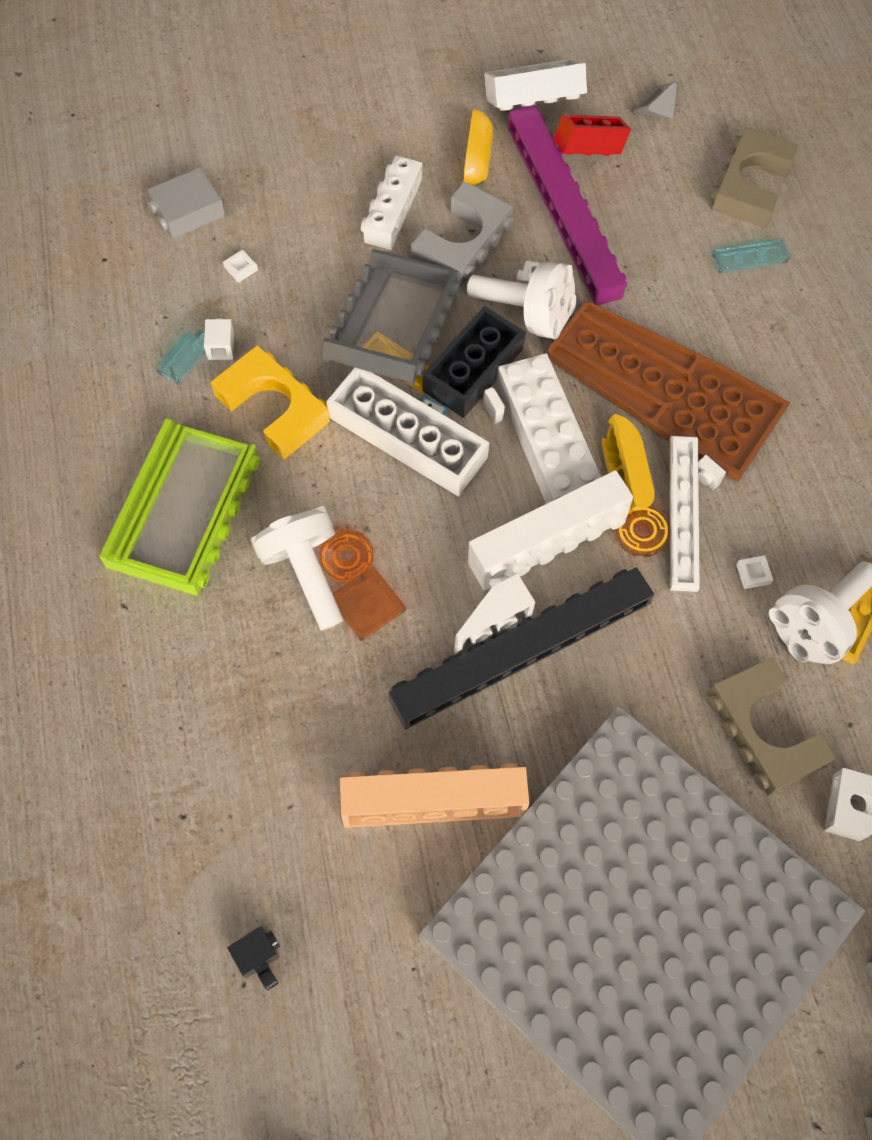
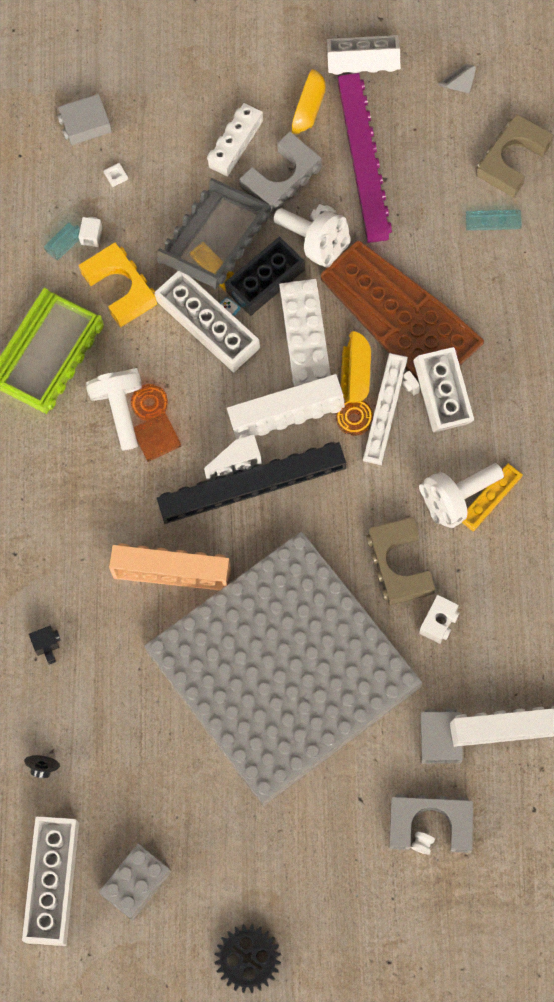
camera: 20 degrees right, 5 degrees up
(493, 405) = (272, 310): white tile -> none
(591, 134) = (394, 106): red brick -> none
(754, 572) = (422, 458): white plate -> none
(762, 472) = (443, 389): none -> white brick

